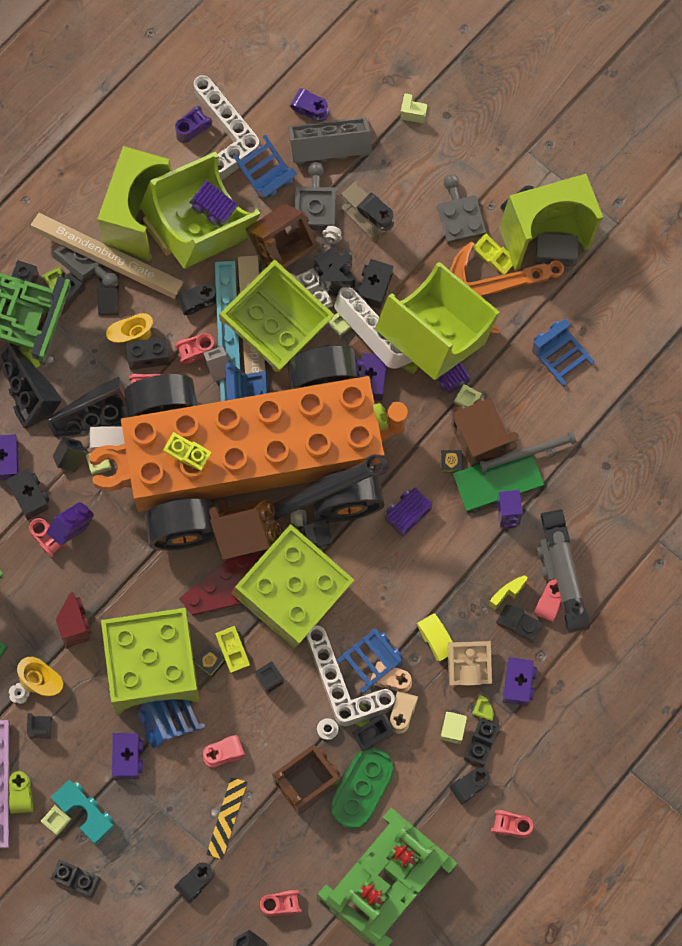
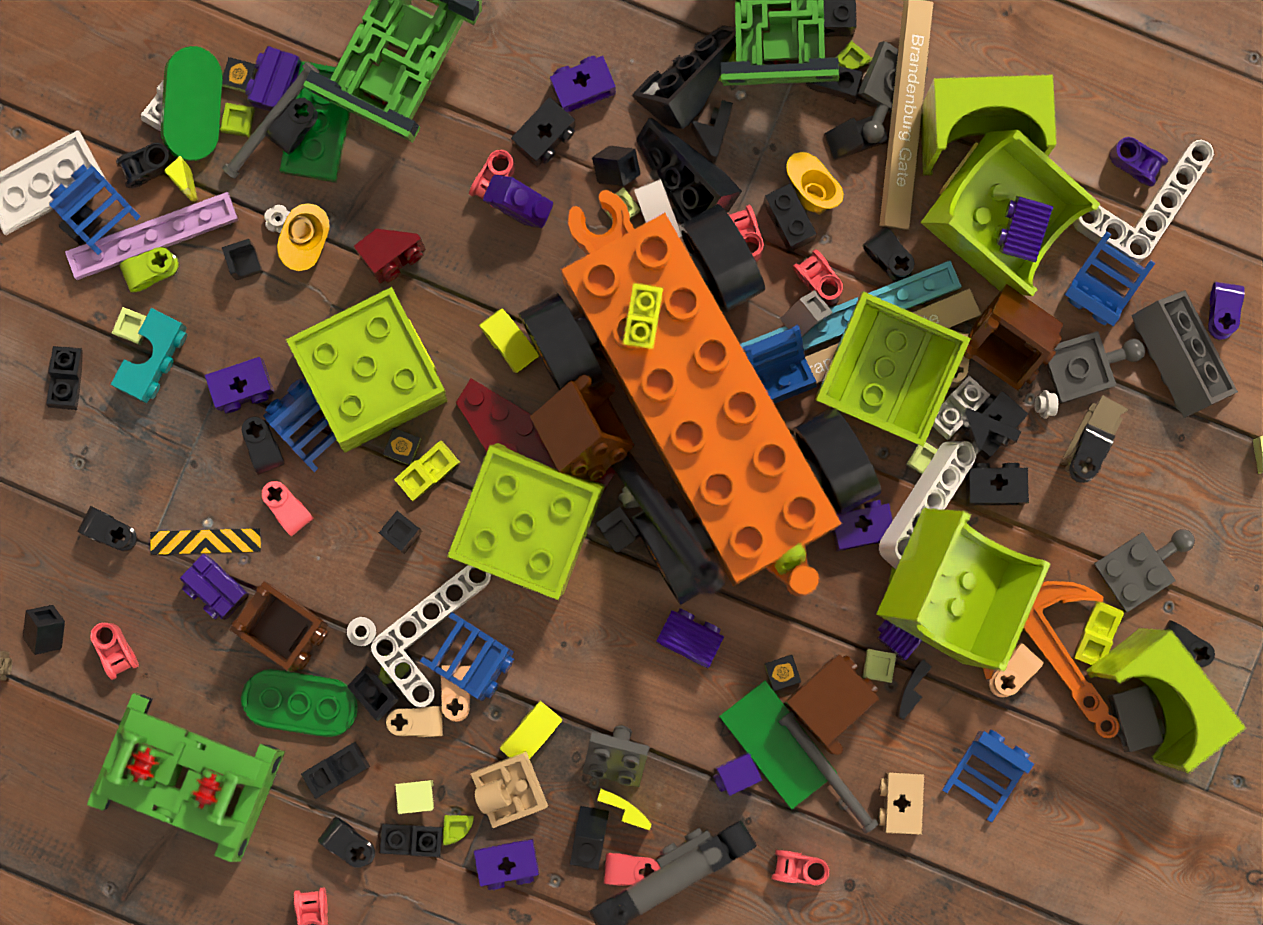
camera: 70 degrees right, 10 degrees up
(73, 384) = (712, 136): none -> black slope
(162, 563) = (509, 340): none -> neon yellow slope
(177, 754) = (262, 450): none -> black piece
(262, 819) = (213, 587): none -> dark purple brick
(417, 778) = (335, 770): none -> black slope
(472, 584) = (616, 757): none -> dark grey plate
(493, 384) = (908, 696): none -> black slope
(506, 314) = (1019, 670): none -> light nougat piece
(555, 405) = (910, 818): none -> tan brick
(583, 494) = (797, 868): none -> coral piece

